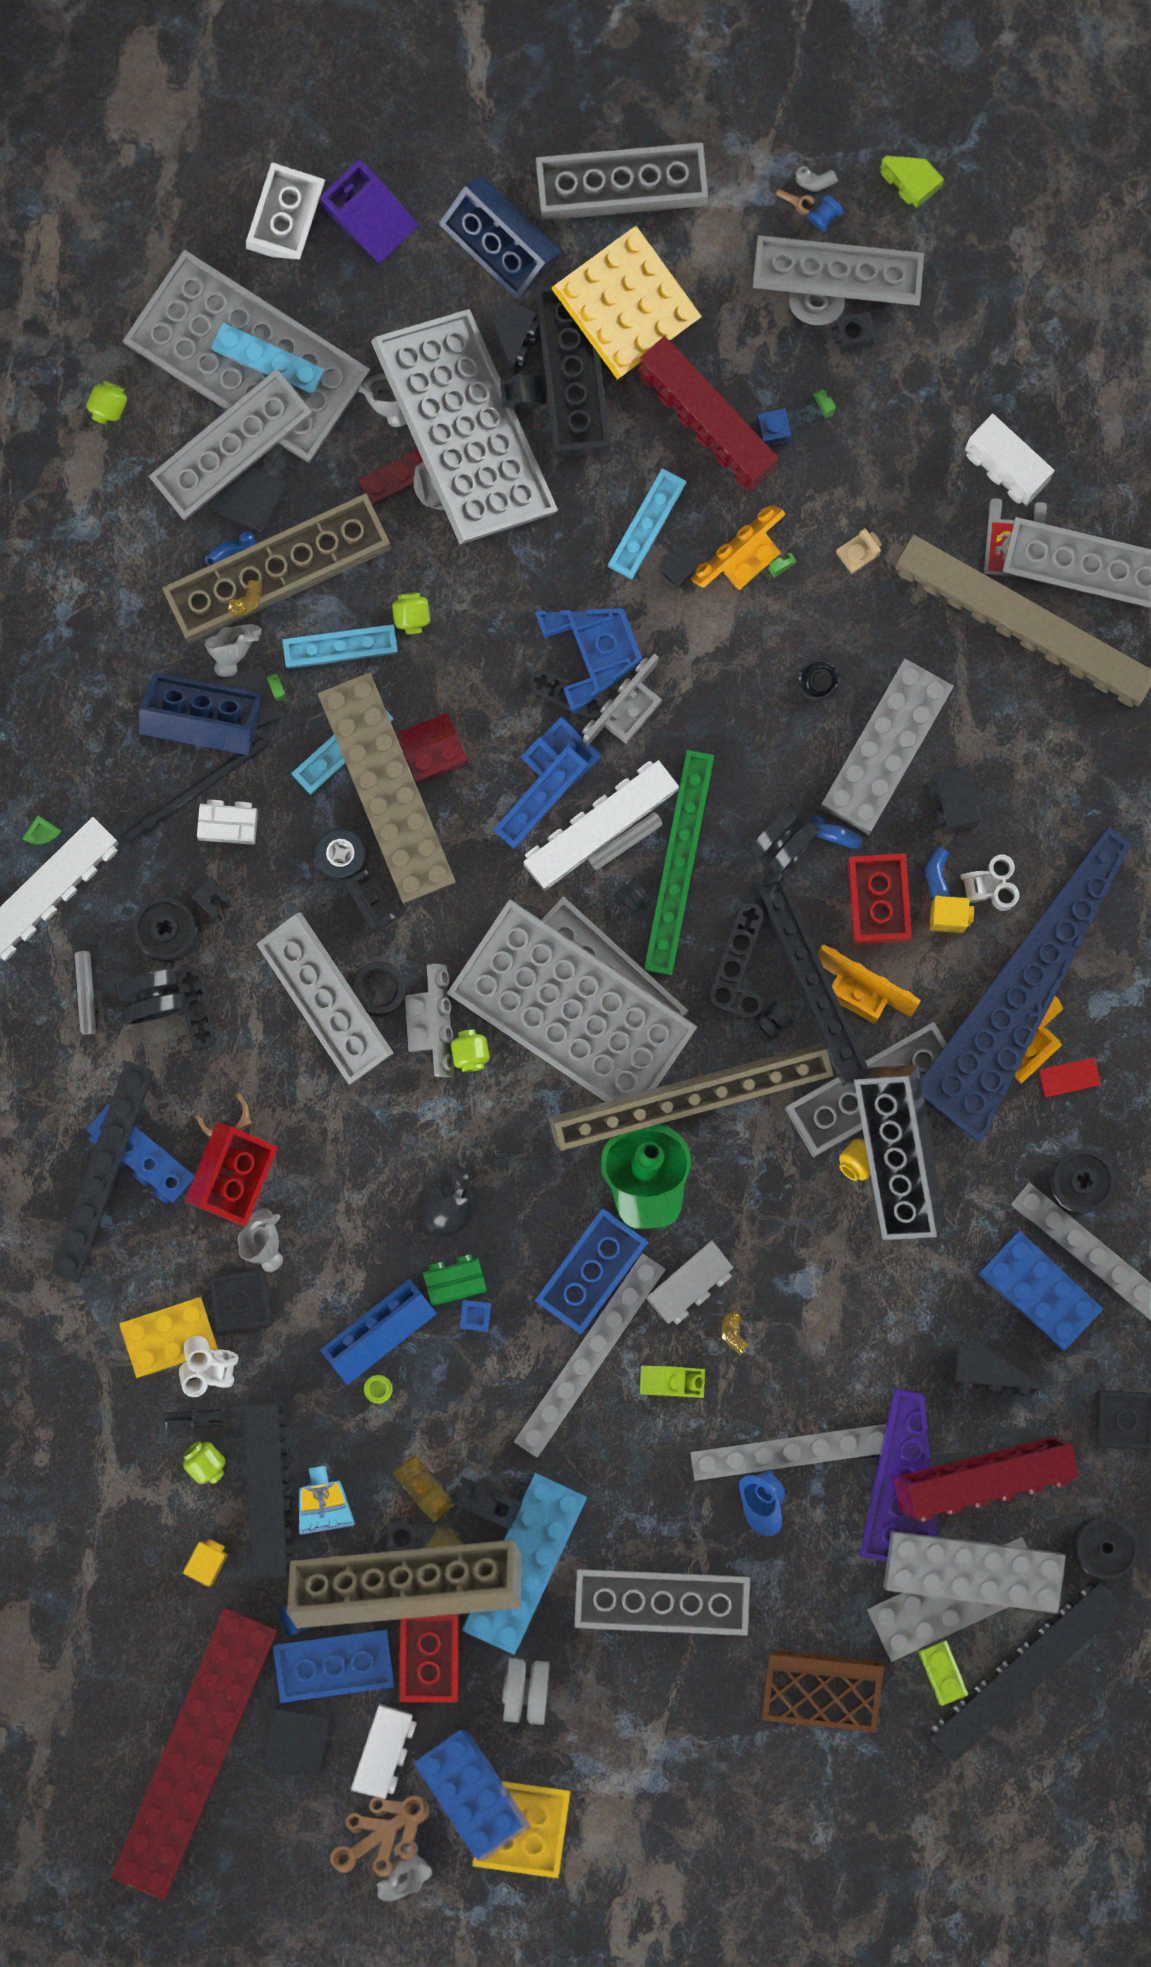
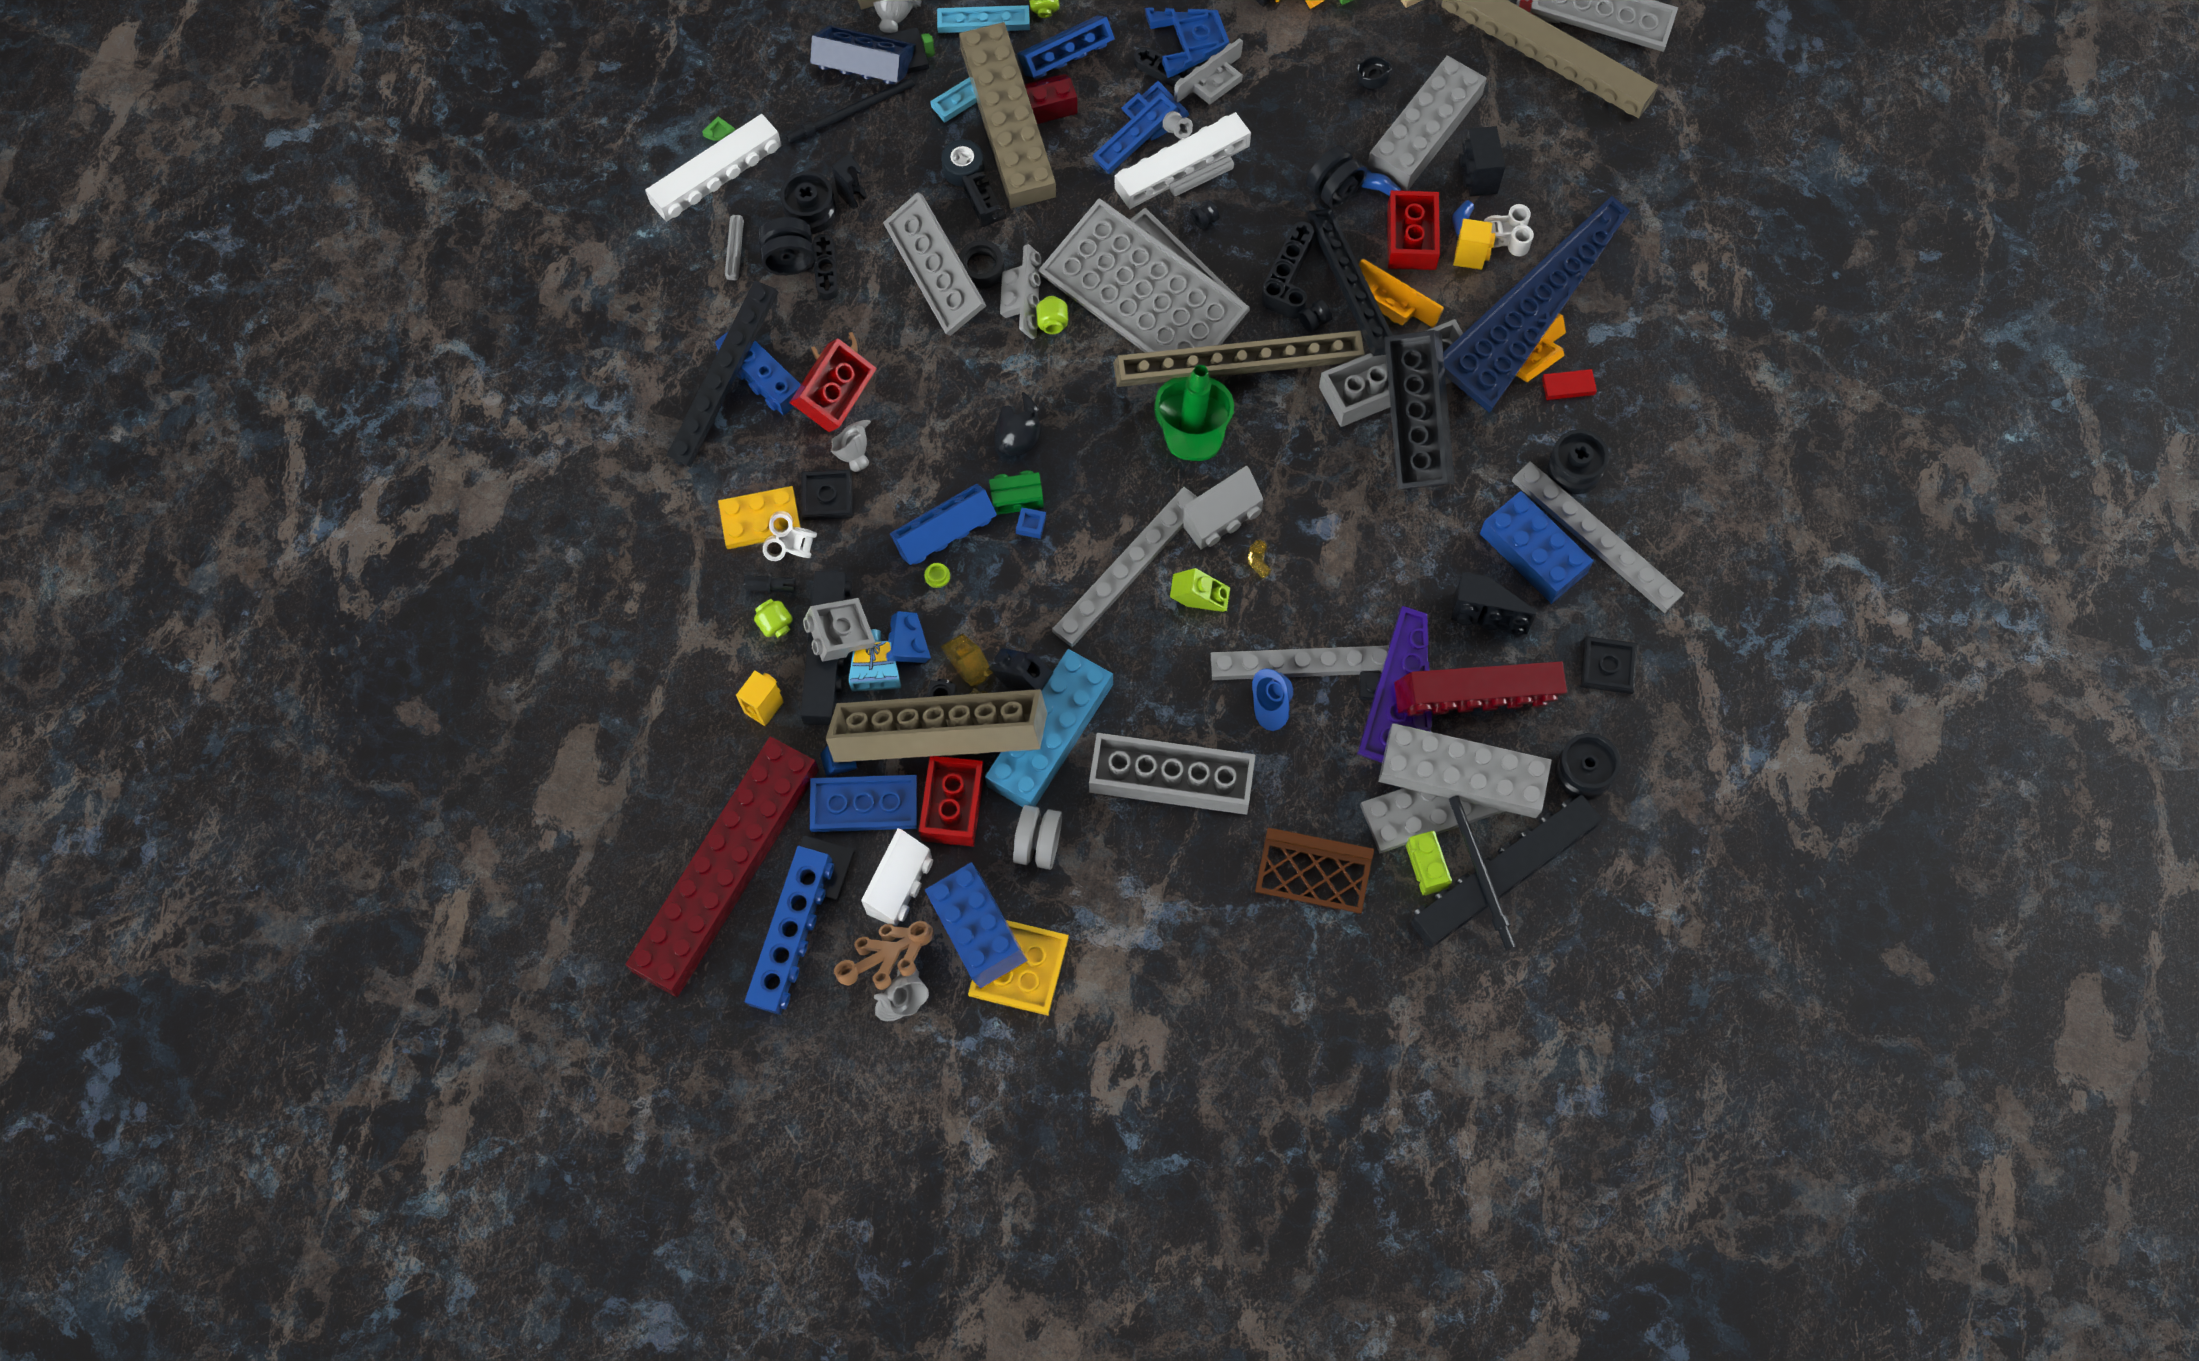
camera: 10 degrees right, 15 degrees down
(227, 823) = (872, 133): white brick -> none
(255, 1889) = (803, 863): none -> blue brick
(282, 1479) = (838, 629): none -> light grey plate
(355, 1472) = (907, 639): none -> blue wing
(445, 682) = (1065, 46): none -> blue brick
(591, 787) = (1176, 124): none -> light grey bush
(591, 1271) = (1137, 493): blue brick -> none
(679, 863) = (1245, 194): green plate -> none
(855, 1161) = (1379, 429): yellow head -> none
(1021, 1735) = (1499, 921): none -> black bar

